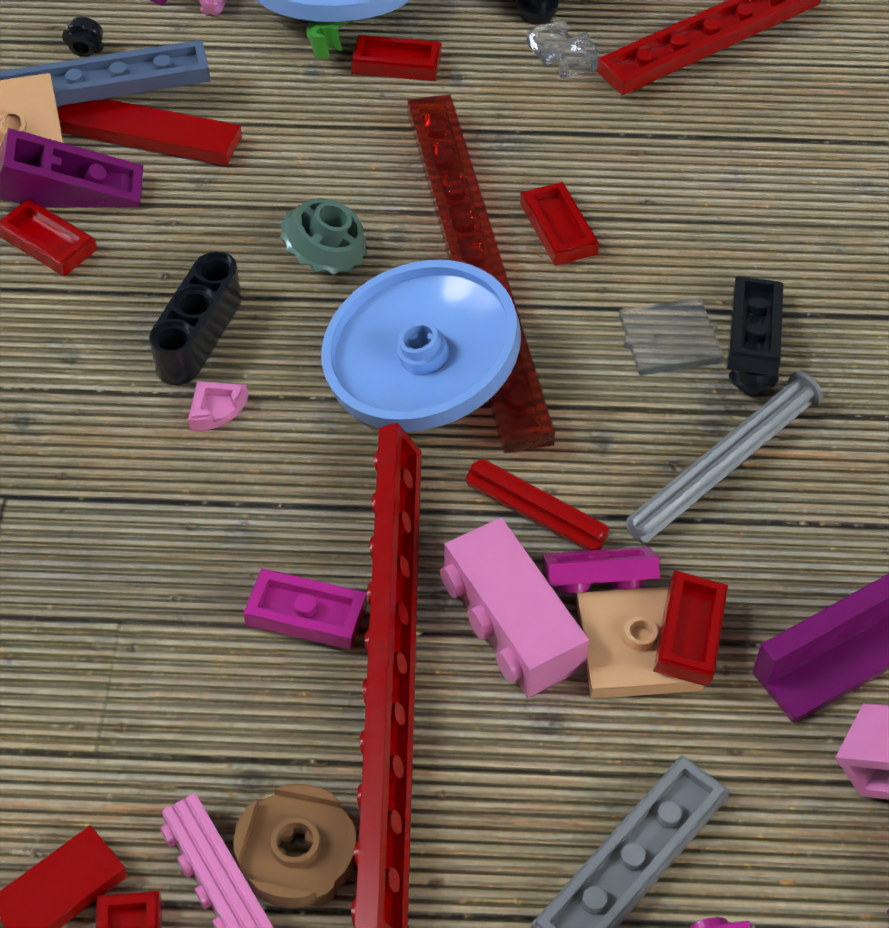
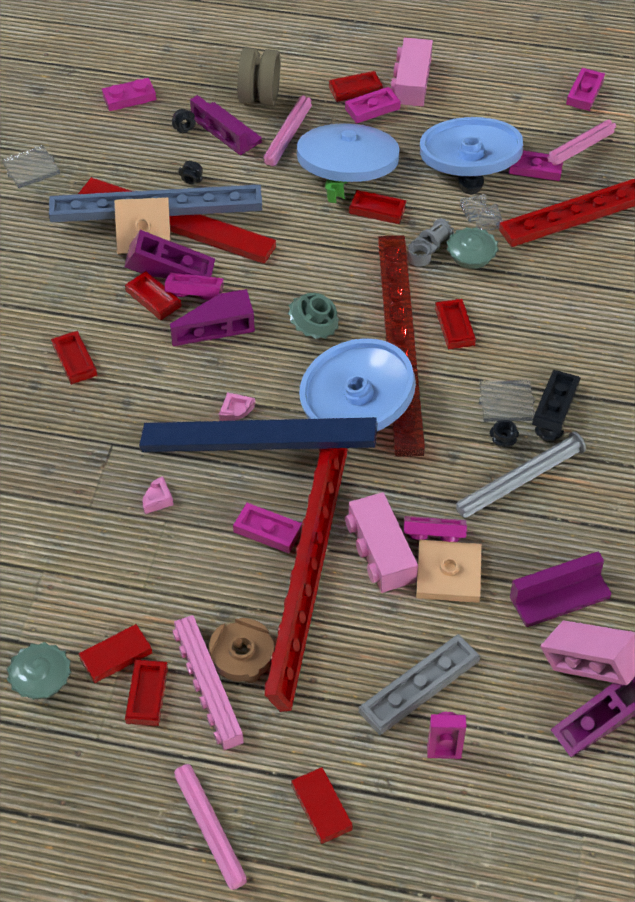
camera: 10 degrees right, 0 degrees up
(97, 212) = (186, 284): none -> dark pink plate
(98, 579) = (157, 496): none -> bright pink tile
(151, 261) = (217, 318): none -> magenta slope
(195, 318) = (232, 355): black beam -> none
(264, 446) = (259, 434): none -> dark blue tile
(484, 101) = (425, 240): none -> light grey connector
(537, 505) = (407, 488): red axle -> none
(563, 101) = (472, 247): none -> sand green piece
(680, 390) = (507, 428): none -> black plate
(691, 628) = (477, 567): red tile -> none

